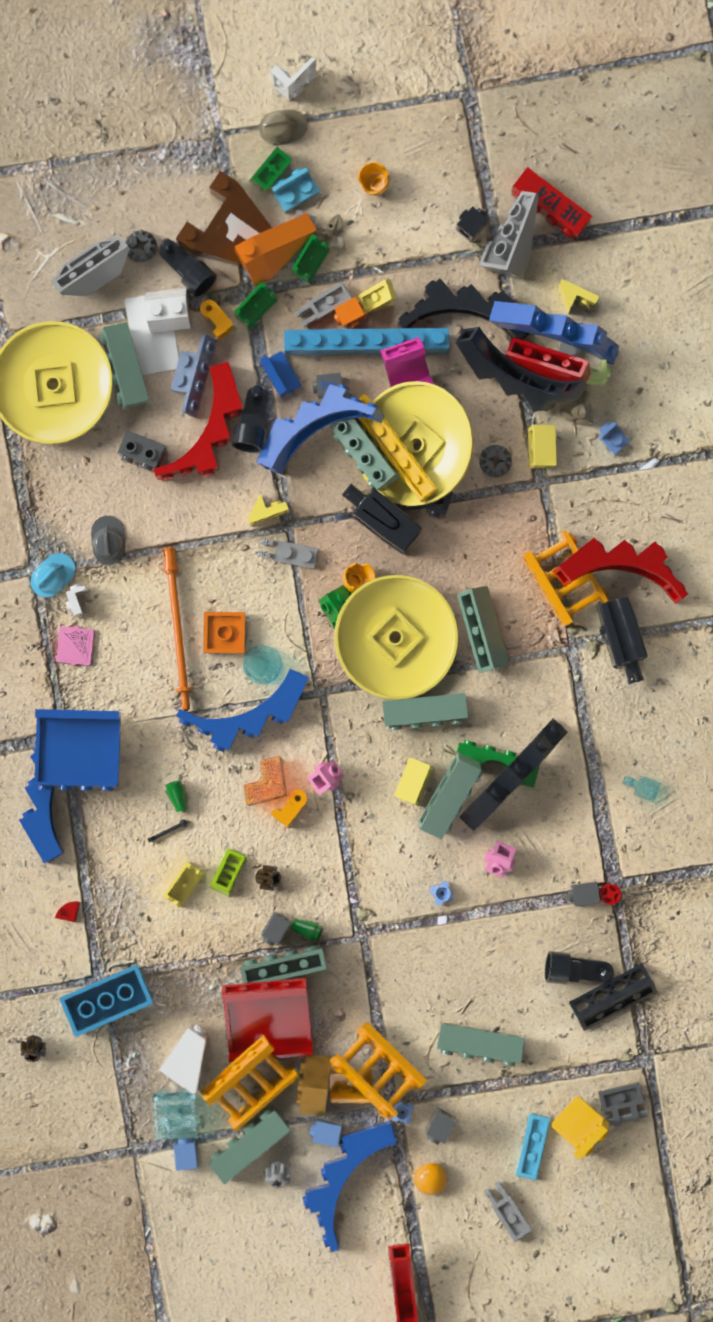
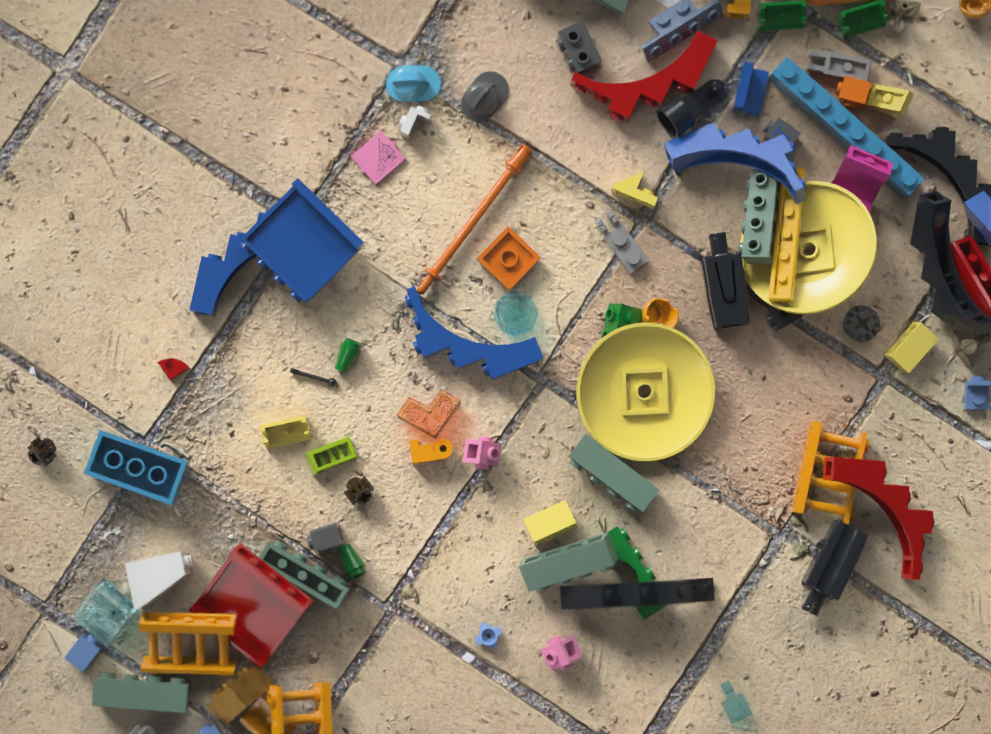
camera: 40 degrees right, 0 degrees up
(483, 629) = (723, 451): sand green brick -> none

